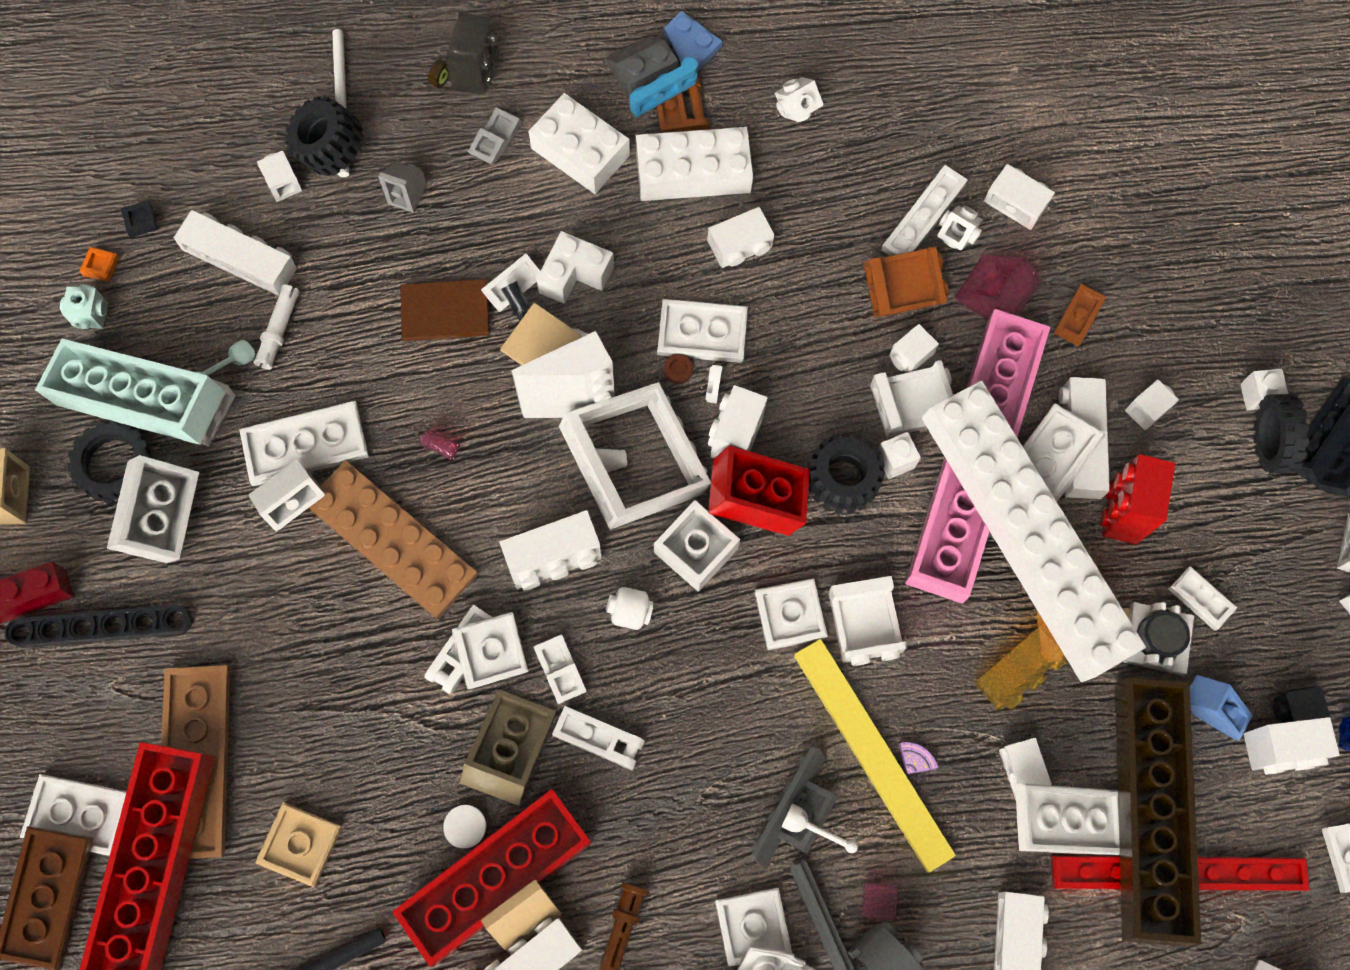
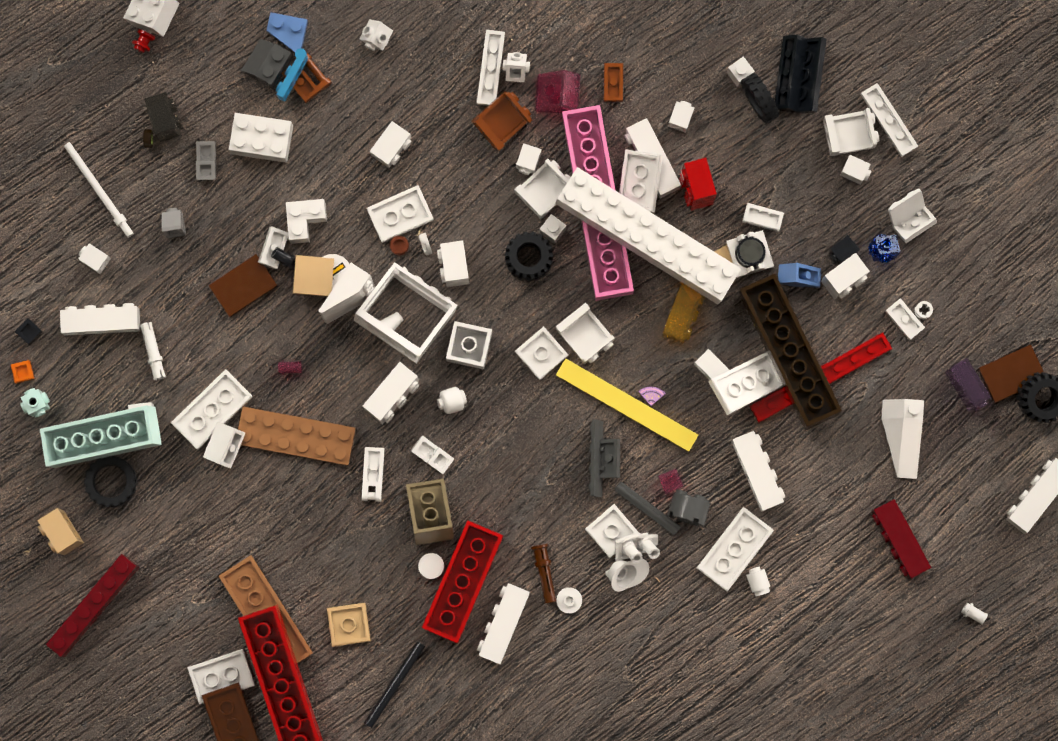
camera: 25 degrees left, 10 degrees up
(99, 622) = (164, 572): black beam -> none
(153, 509) = (157, 494): white brick -> none
(239, 354) = (142, 379): light aqua hinge -> none
(324, 136) = (95, 224): black tyre -> none
(490, 650) = (389, 466): white tile -> none
(520, 915) = (488, 592): tan tile -> none
(597, 737) = (474, 480): white plate -> none
(694, 163) = (336, 112): white brick -> none
(759, 491) = (487, 295): red brick -> none
(797, 820) = (605, 463): white hinge -> none
(1019, 196) = (540, 25): white brick -> none

